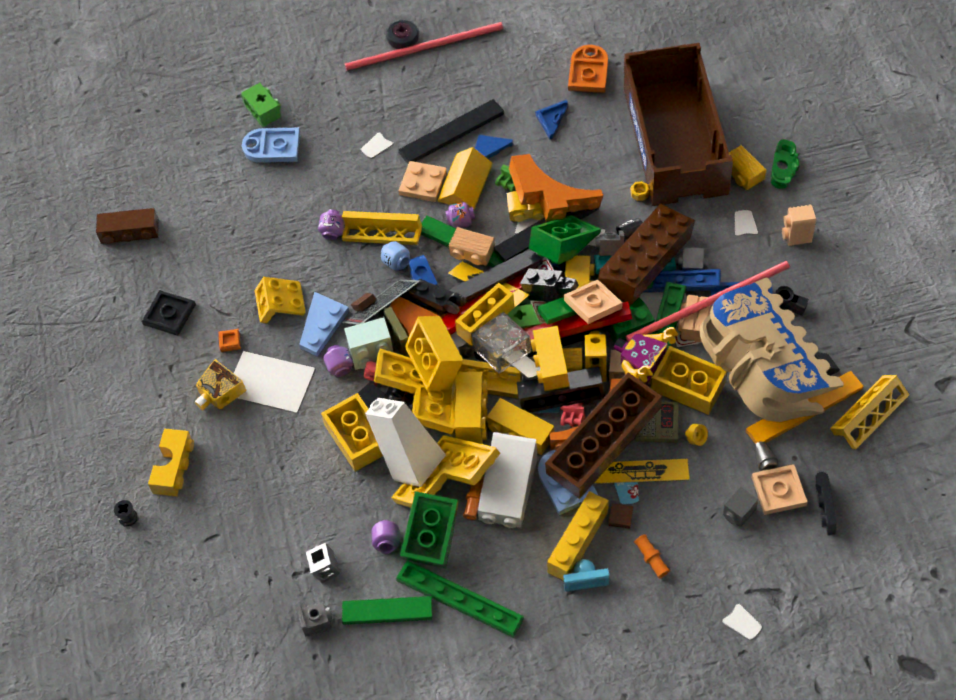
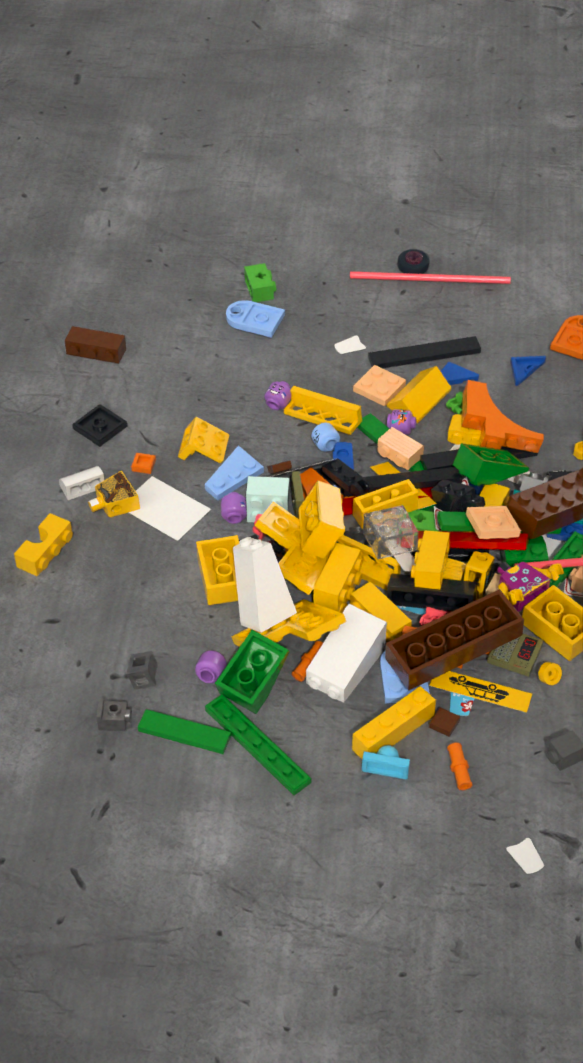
camera: 15 degrees right, 10 degrees down
(179, 382) = (81, 482): none -> white brick

